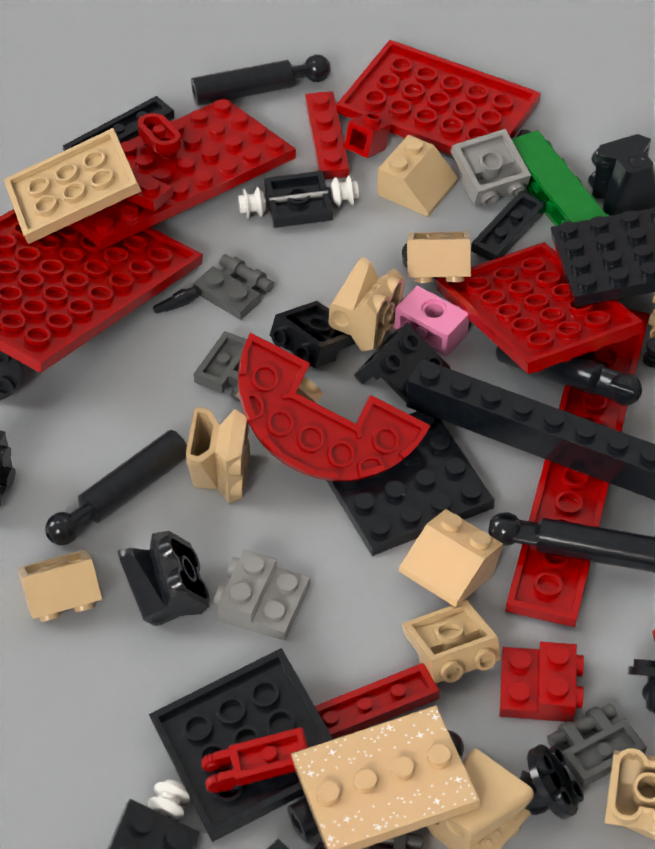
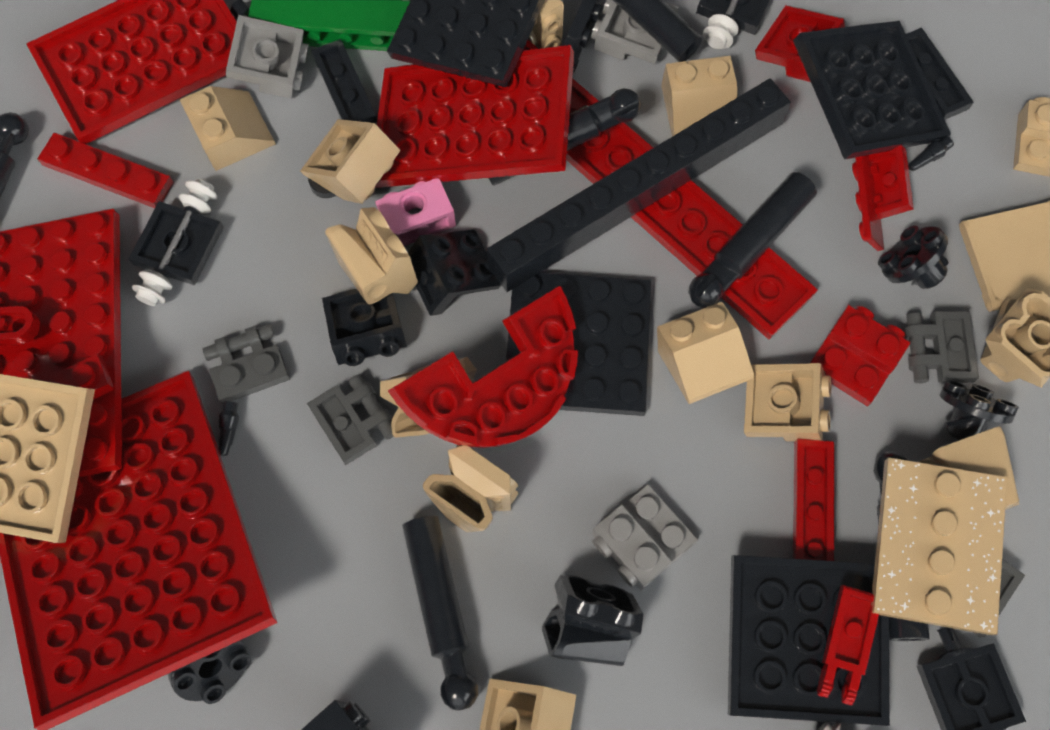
camera: 60 degrees left, 20 degrees up
(367, 134) = (141, 135): red brick -> none

